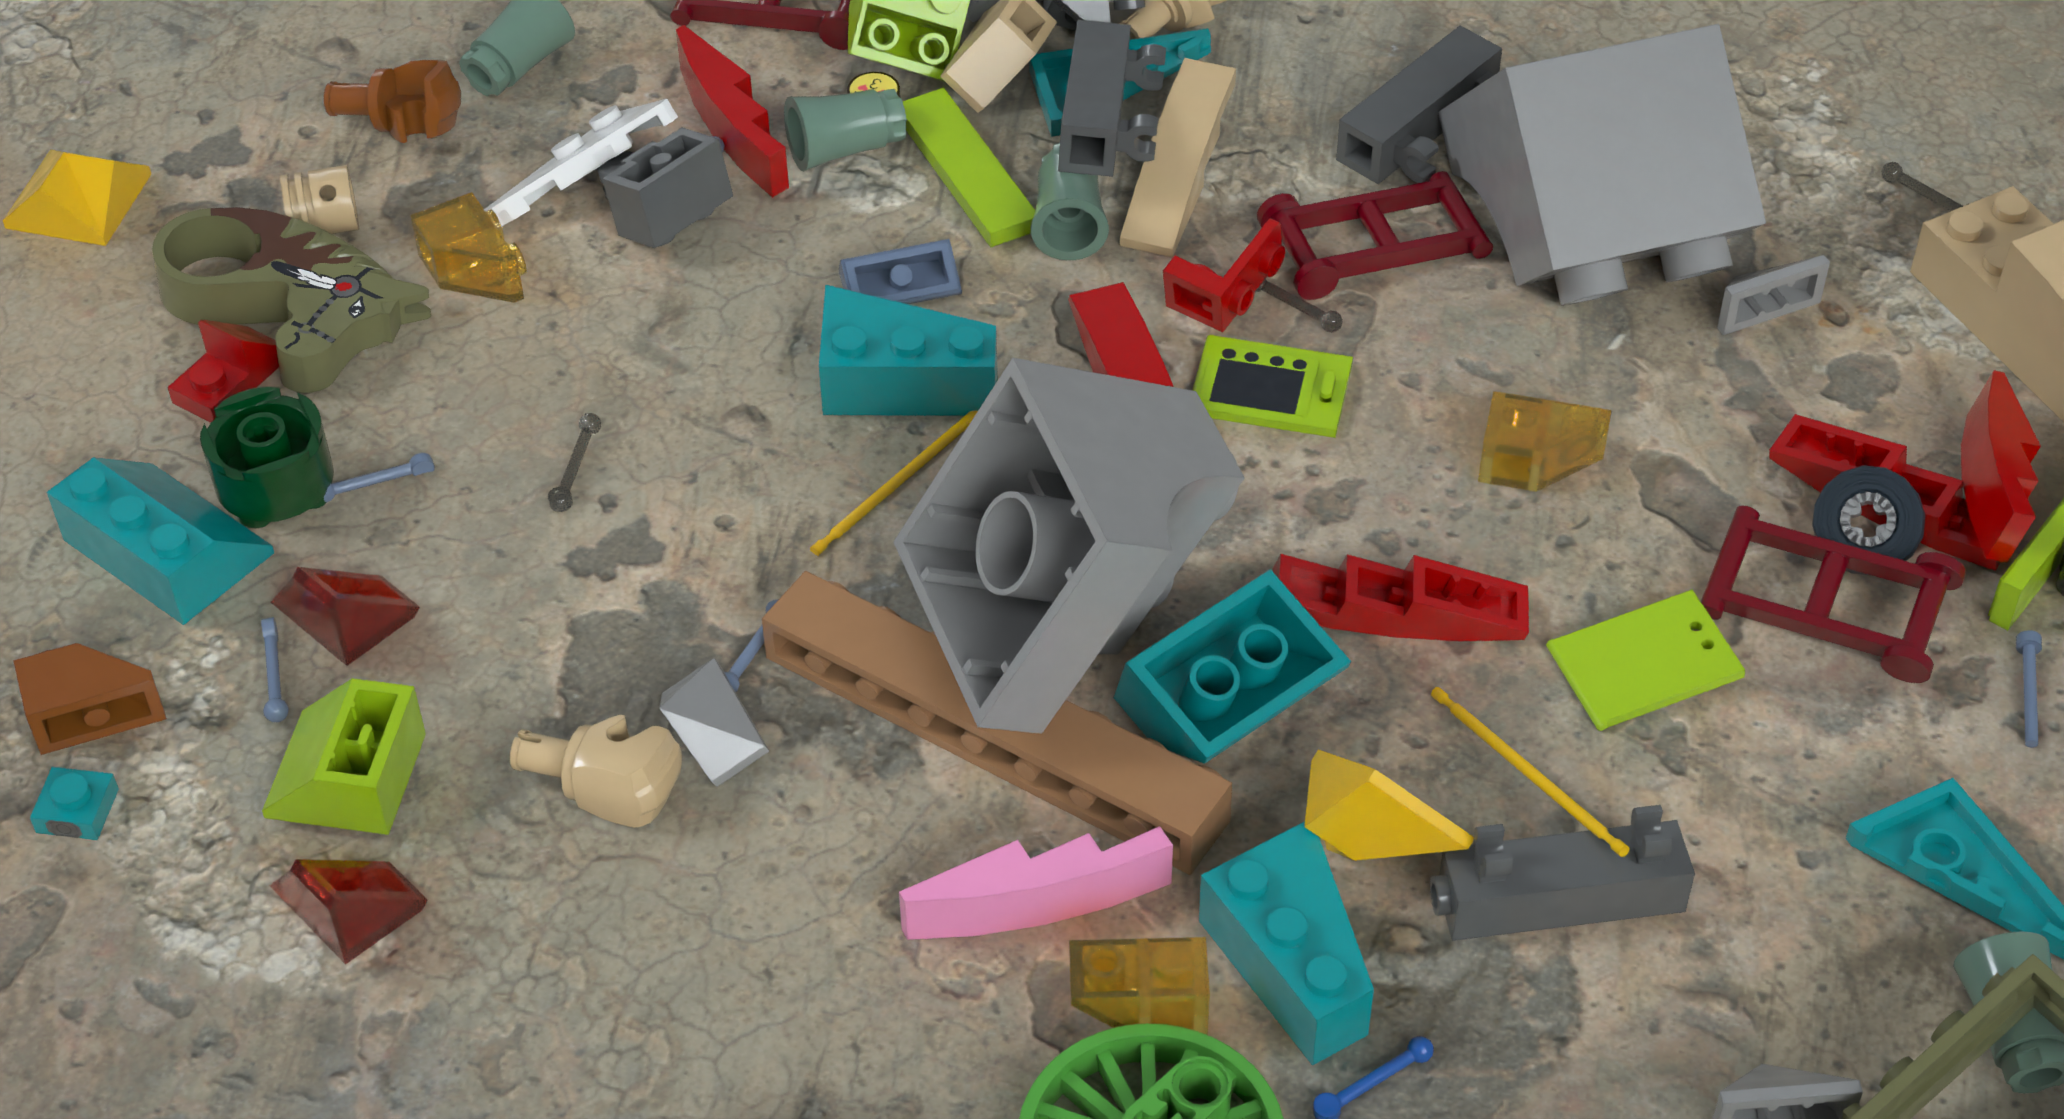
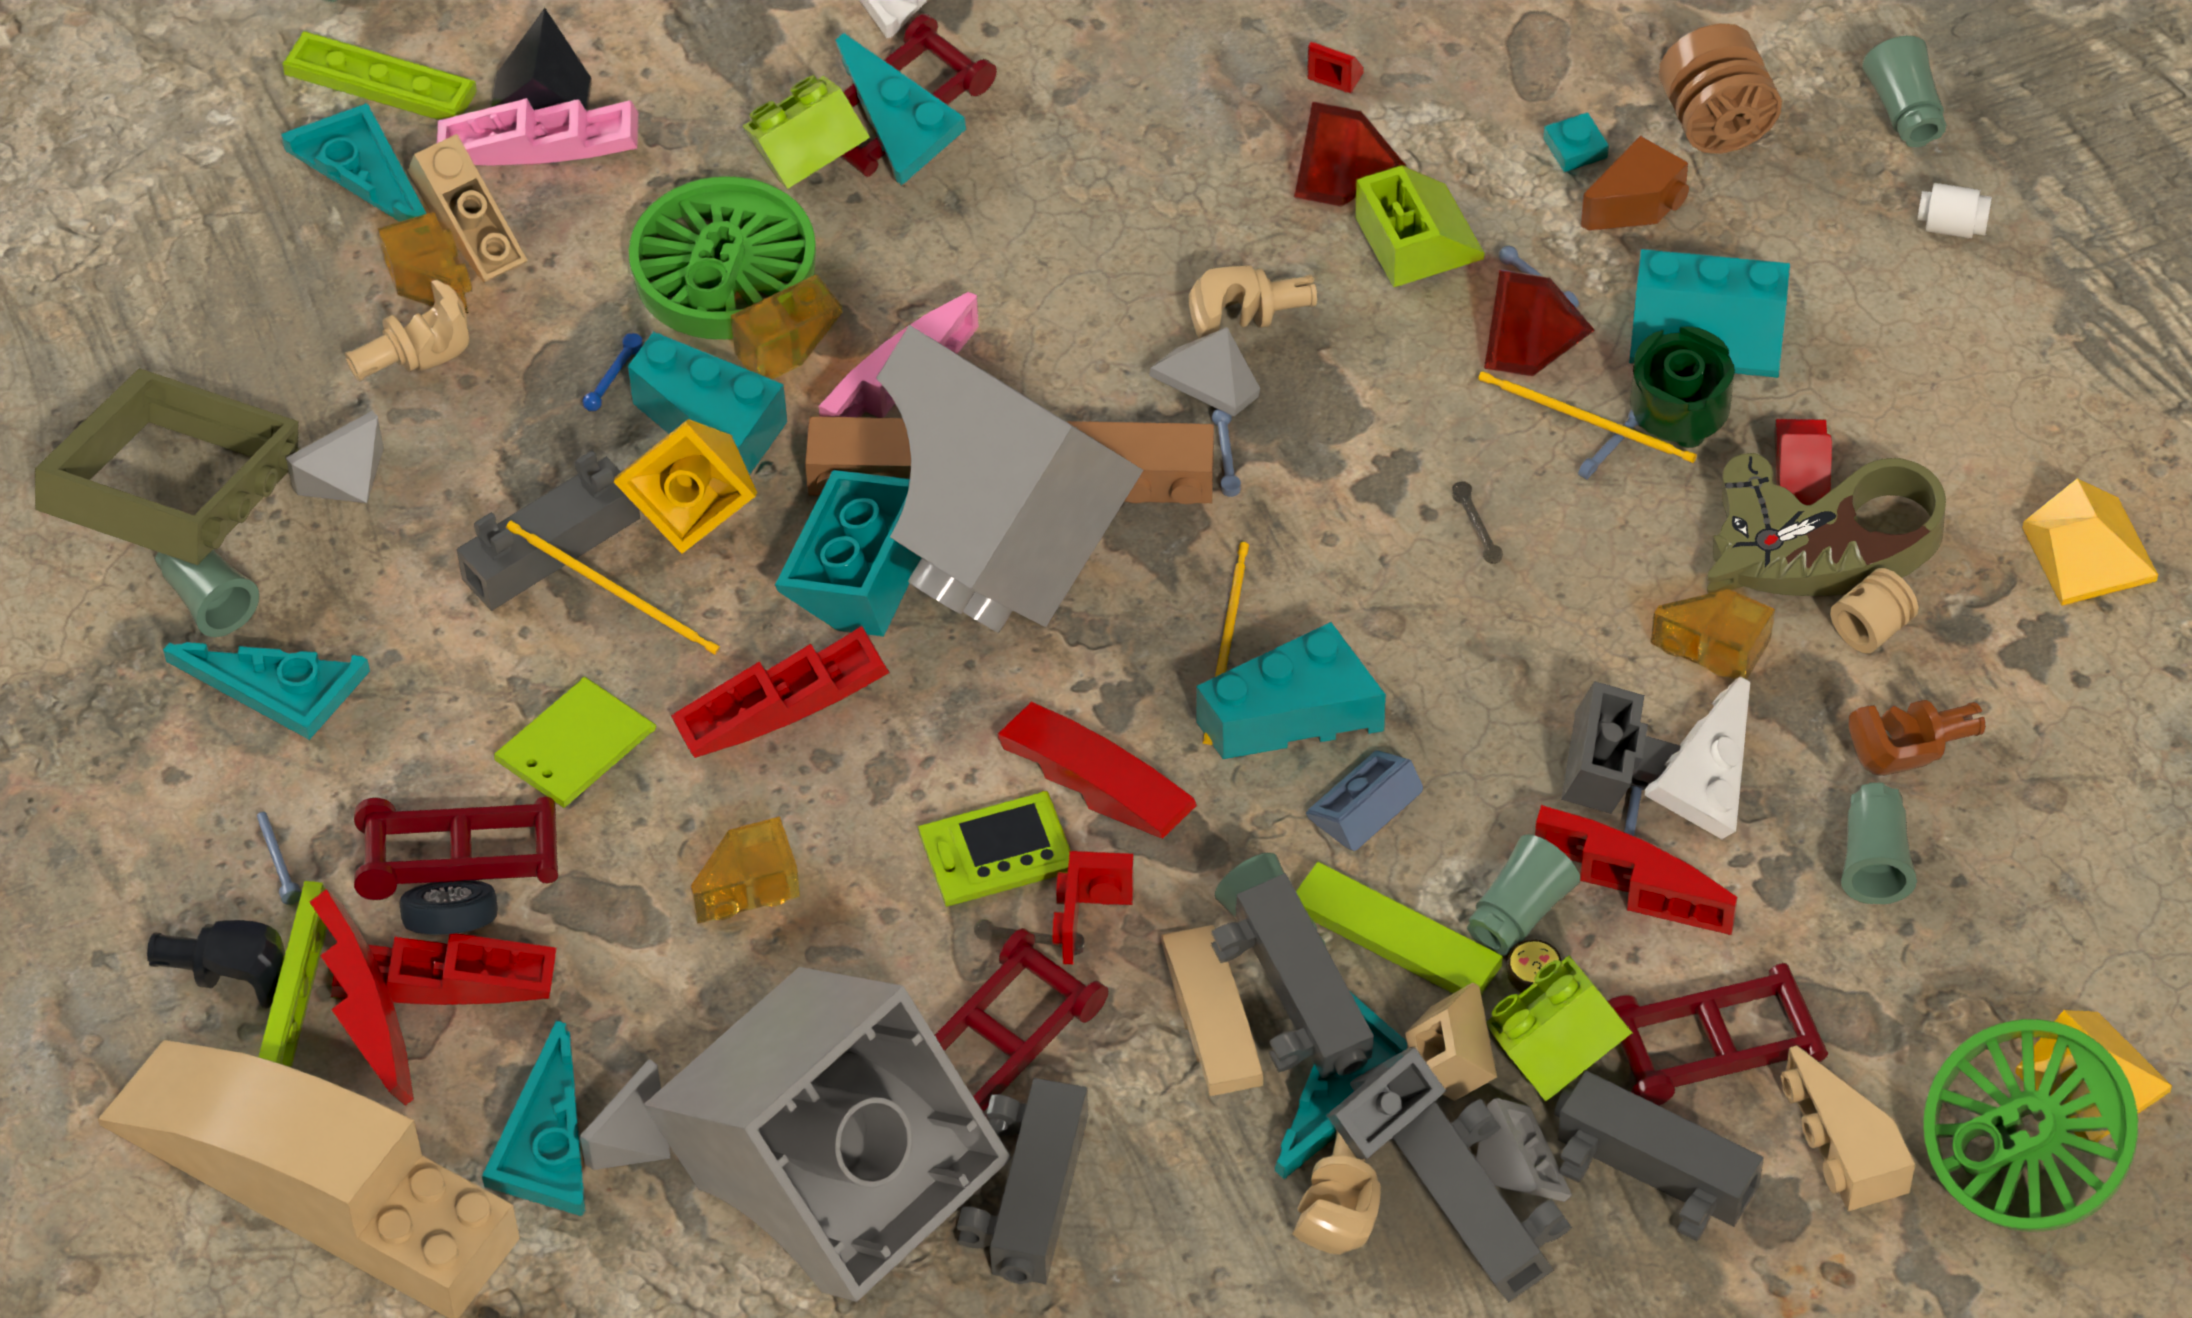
camera: 150 degrees right, 5 degrees up
(230, 1031) = (1333, 68): none -> red slope
(377, 504) = (1587, 417): none -> yellow piece
(1859, 312) = (541, 1142): none -> teal wing

